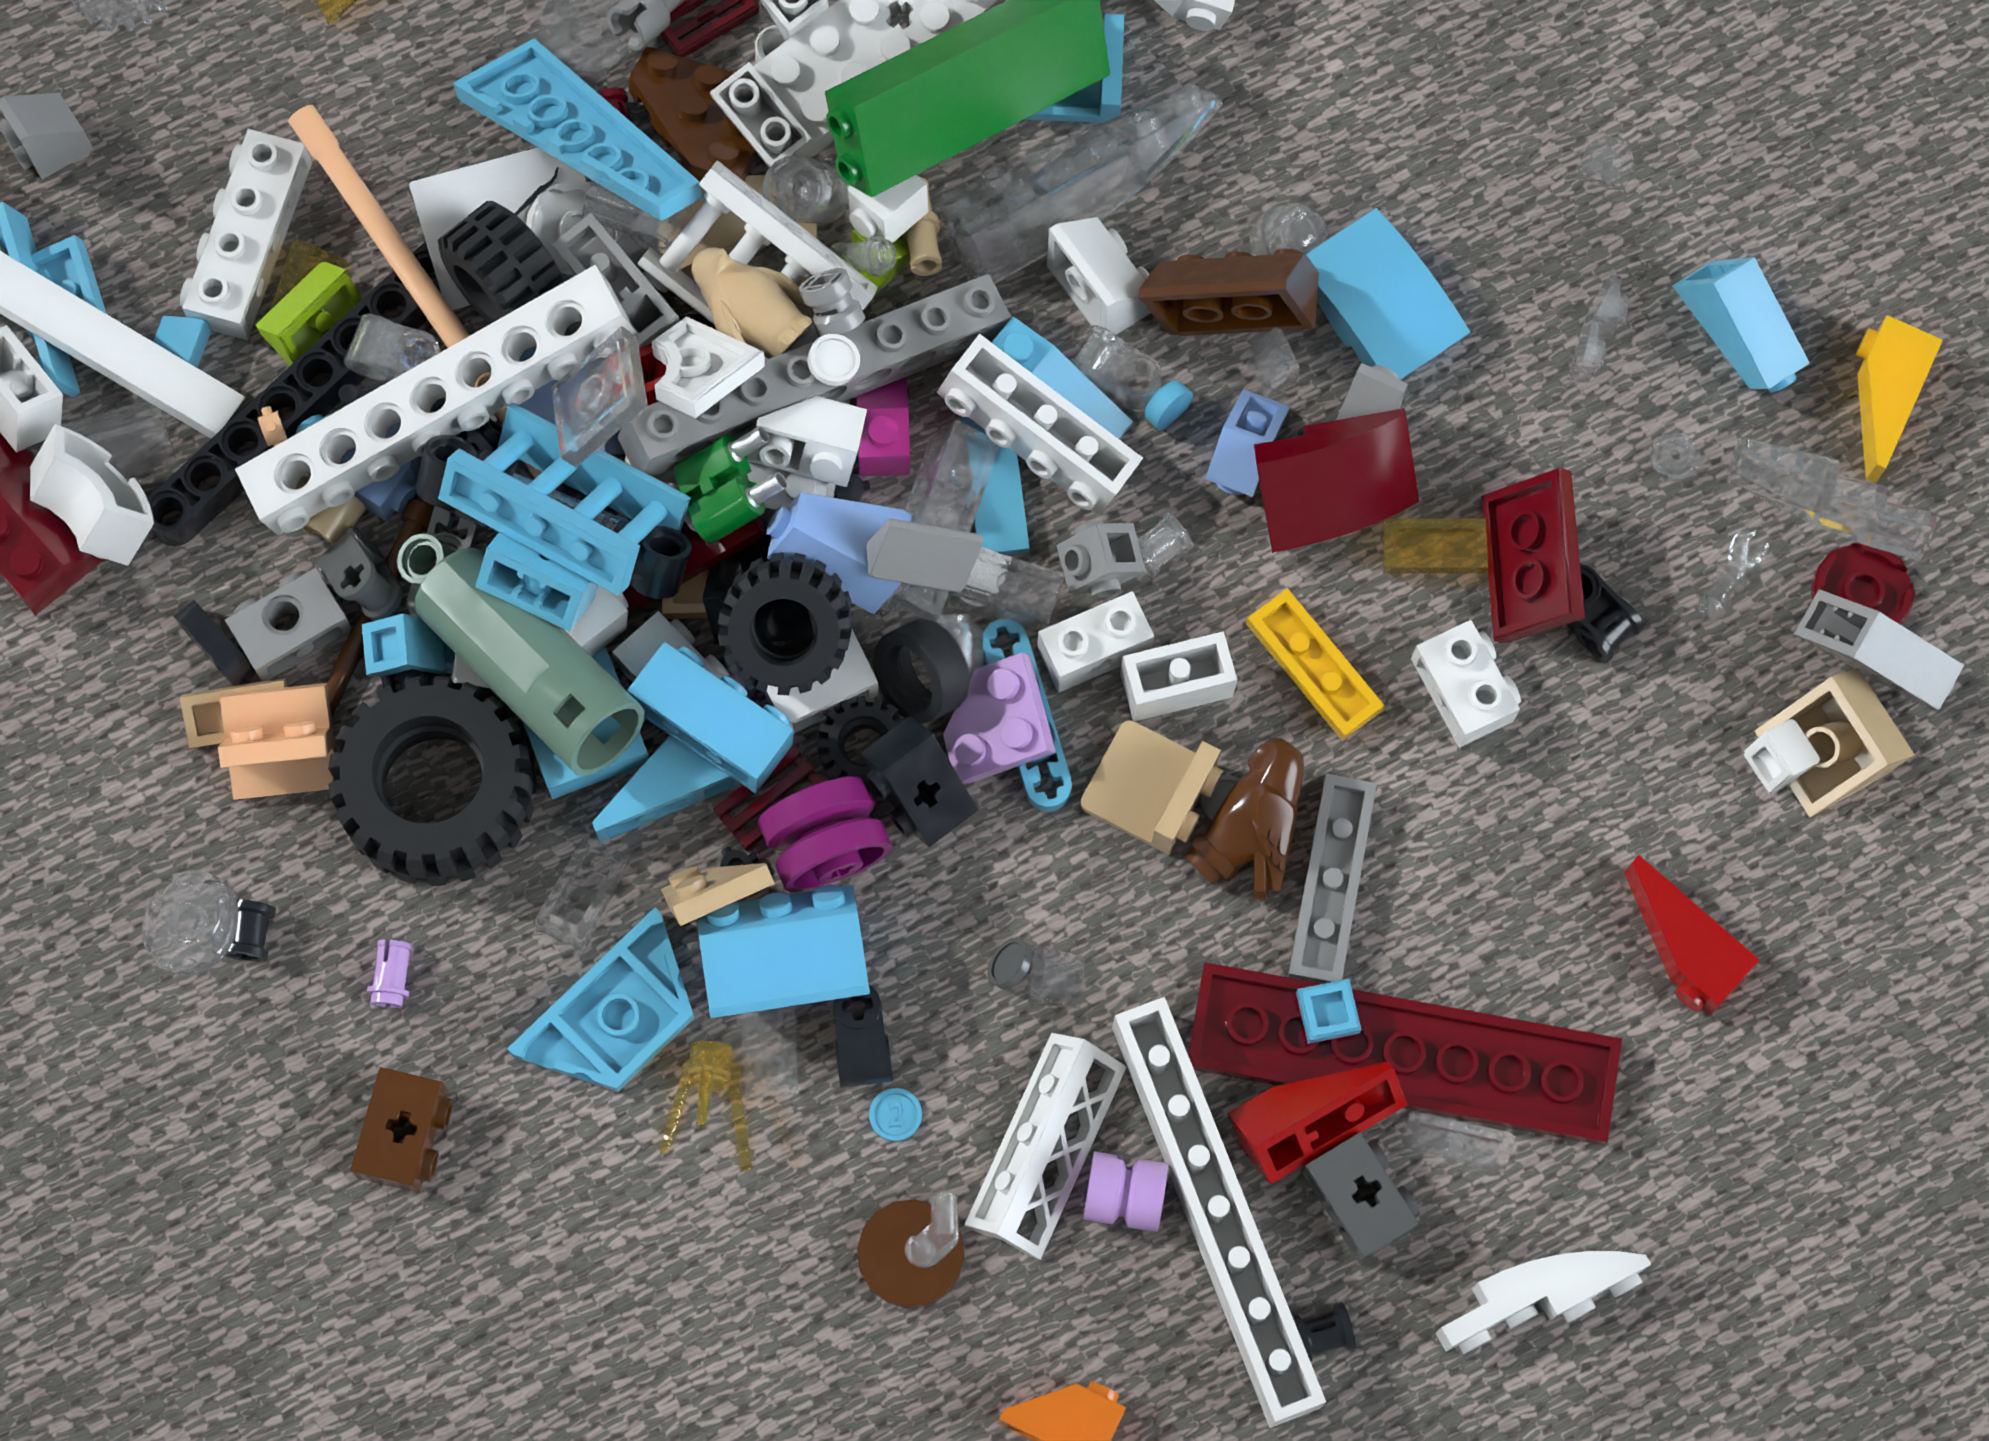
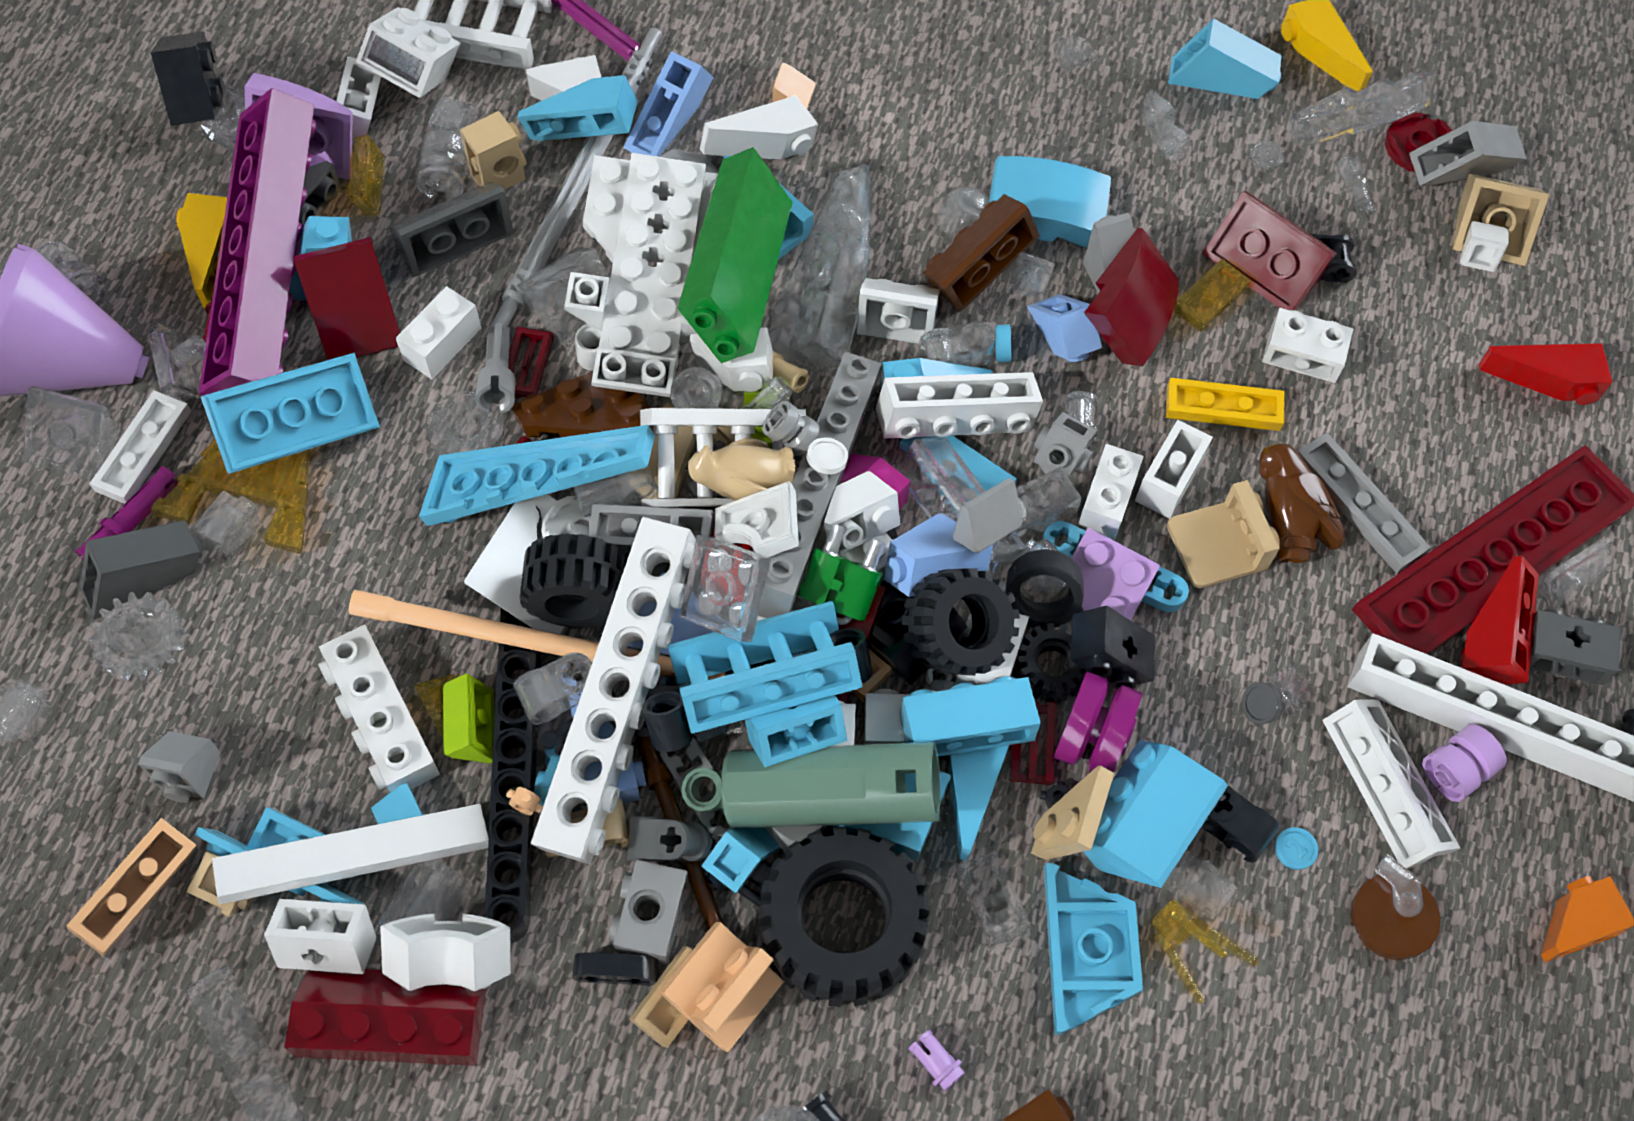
camera: 45 degrees left, 10 degrees down
(1328, 1011) = (1446, 565): medium azure tile -> none

